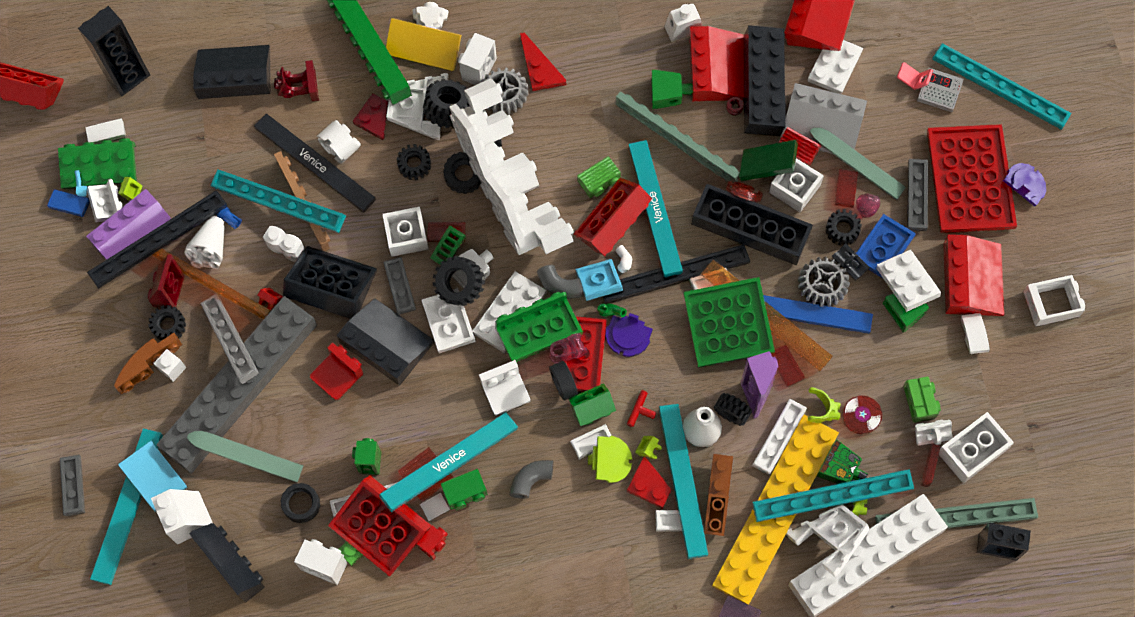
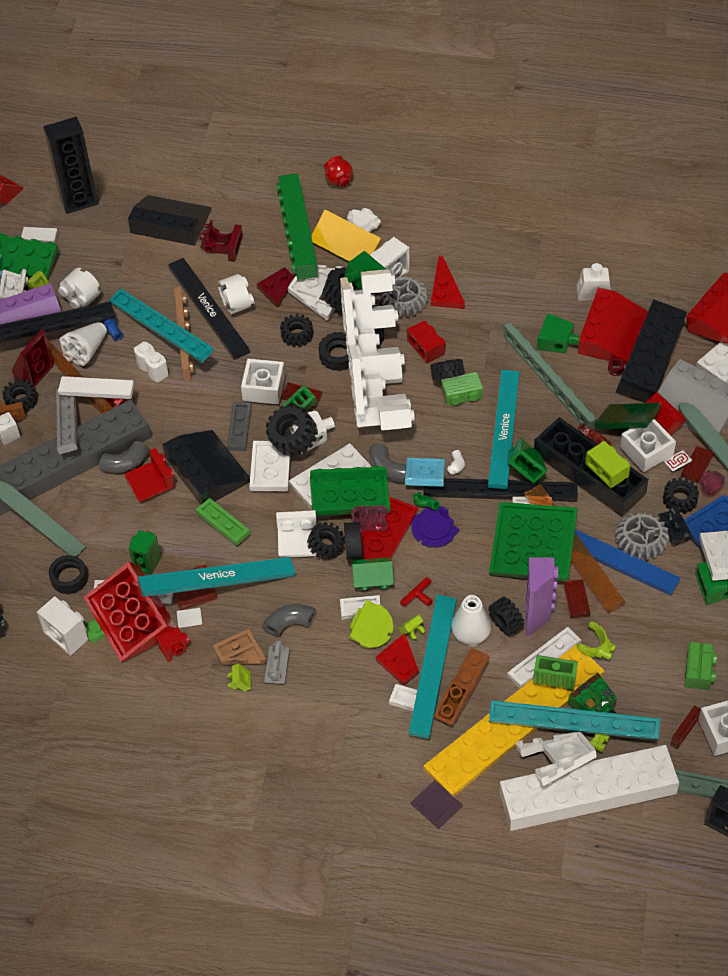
camera: 20 degrees right, 15 degrees down
(177, 184) = (79, 288): none -> white brick
(244, 293) = (96, 387): none -> white tile
(304, 362) = (124, 461): none -> dark grey cylinder
(329, 282) = (176, 403): black slope -> none
(426, 396) = (223, 521): none -> bright green plate
(459, 78) = (361, 263): none -> green torso
(464, 489) = (221, 607): green brick -> none
(497, 526) = (239, 649): none -> medium nougat wing
(511, 555) = (240, 678): none -> lime tile
(530, 394) = (324, 549): none -> black tyre
(538, 528) = (277, 663): none -> light grey hinge
(545, 135) = (426, 341): none -> red brick
(579, 162) = (447, 369): none -> black tyre
(613, 216) = (460, 423): red slope -> none
(692, 239) = (523, 457): none -> green torso
(772, 223) = (607, 464): none -> lime brick
(800, 454) = (555, 672): none -> bright green brick
(827, 190) = (677, 460): none -> white sticker
(862, 415) = (635, 663): clear red tile -> none
(933, 432) = (698, 696): white hips -> none

